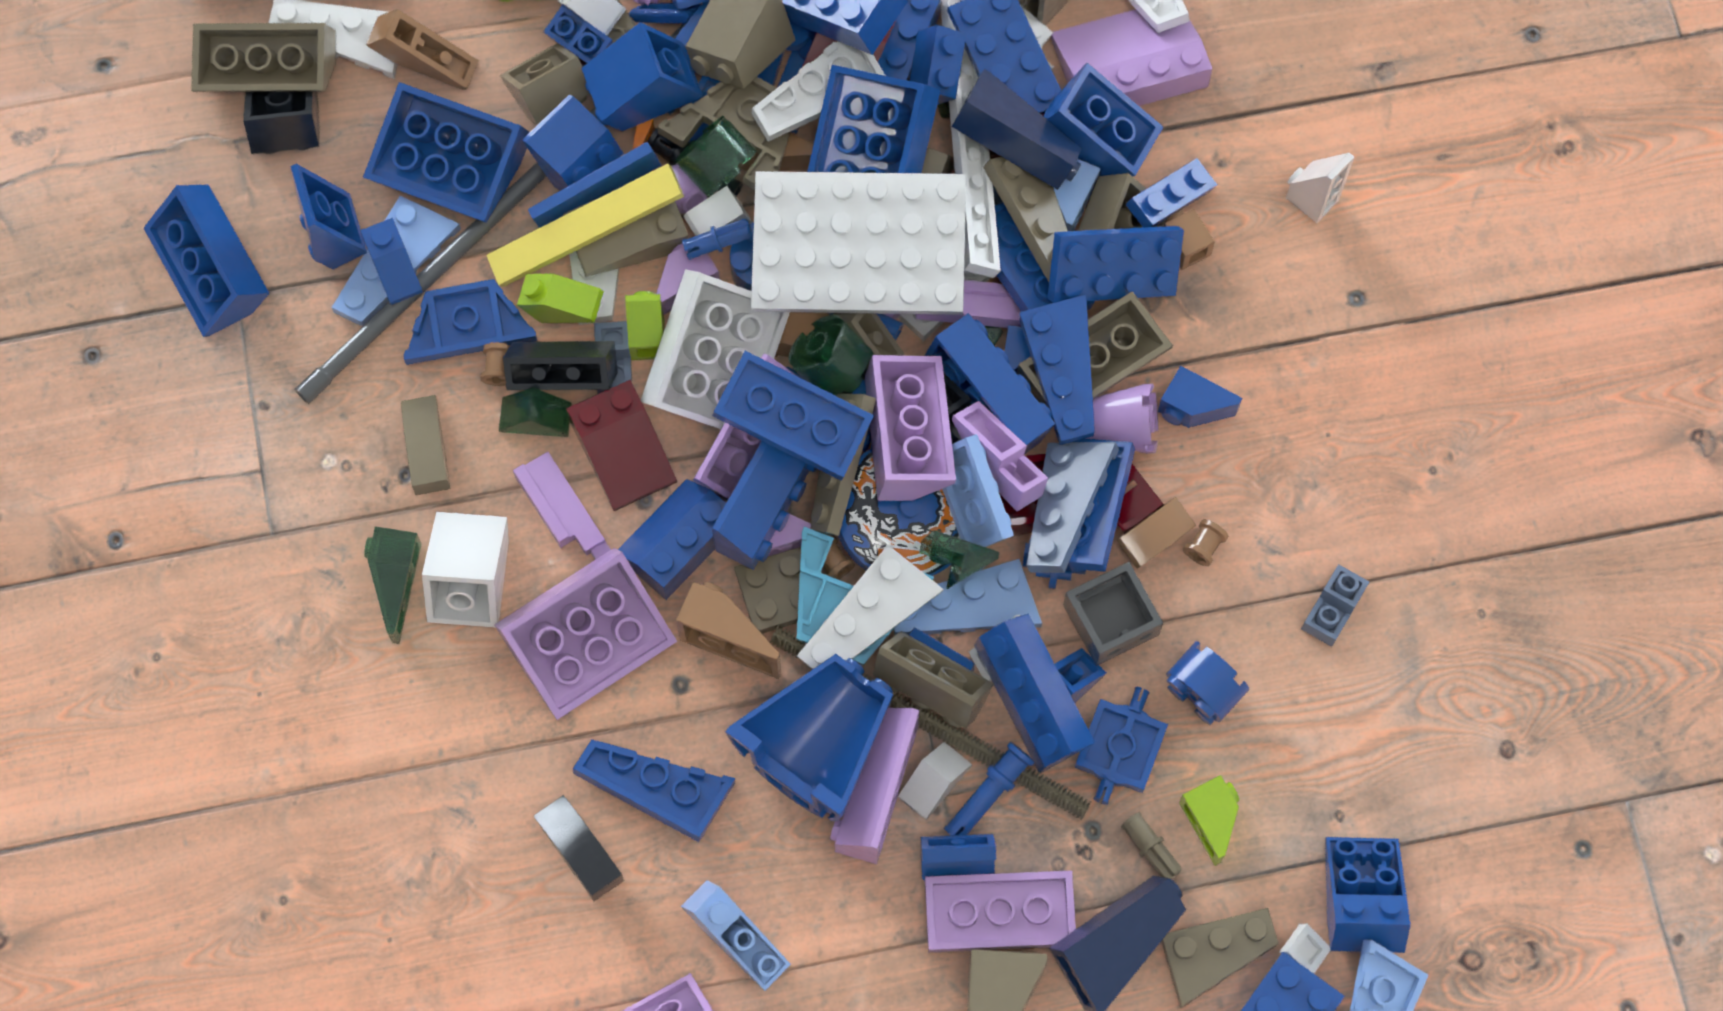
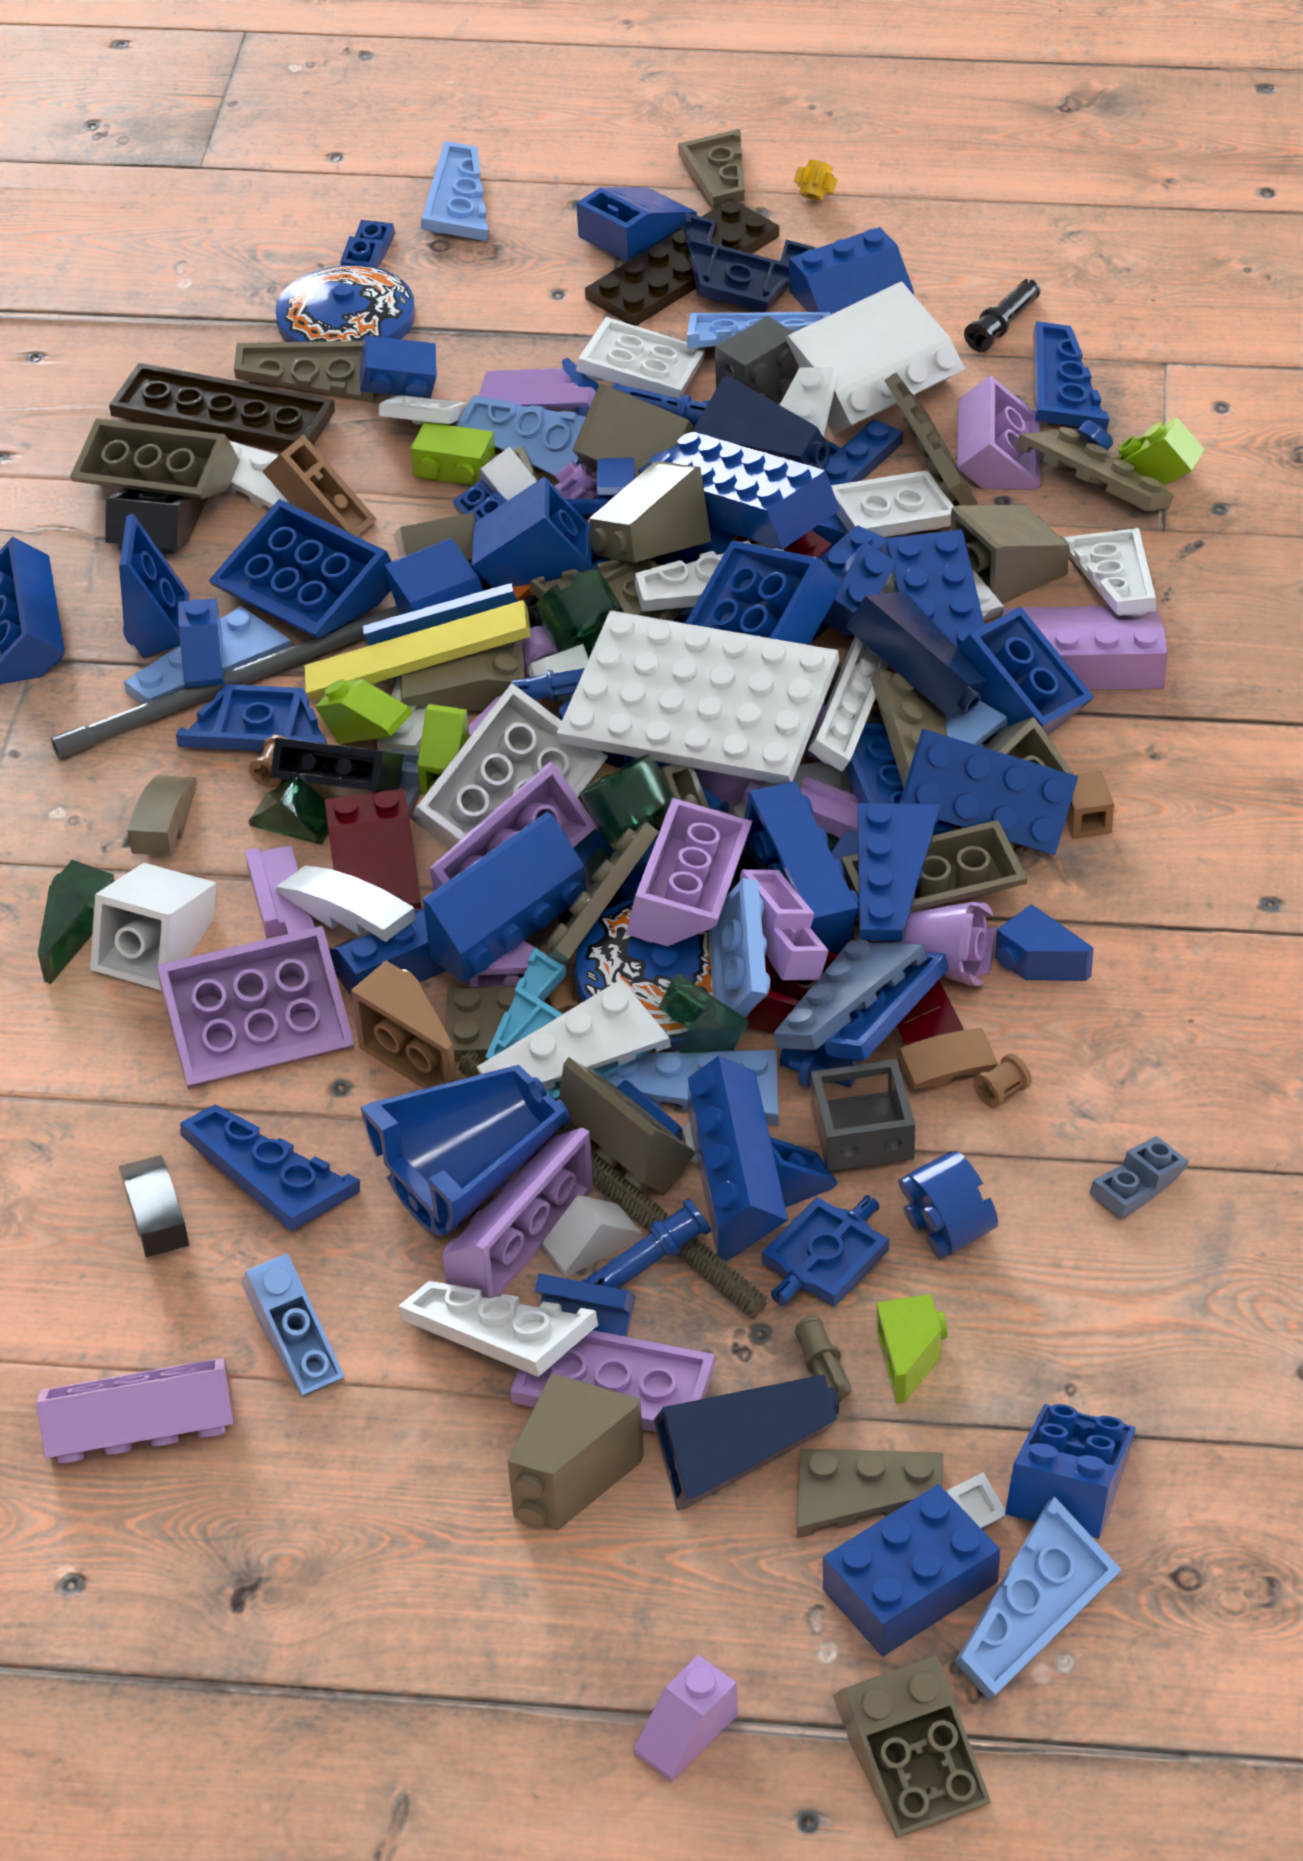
camera: 20 degrees right, 25 degrees down
(624, 511) = (347, 901): none -> white slope
(793, 415) = (555, 814): blue plate -> none
(914, 898) = (498, 1326): none -> white wing
(1171, 194) = (1083, 754): plate -> none
(1319, 185) = (1256, 776): white slope -> none

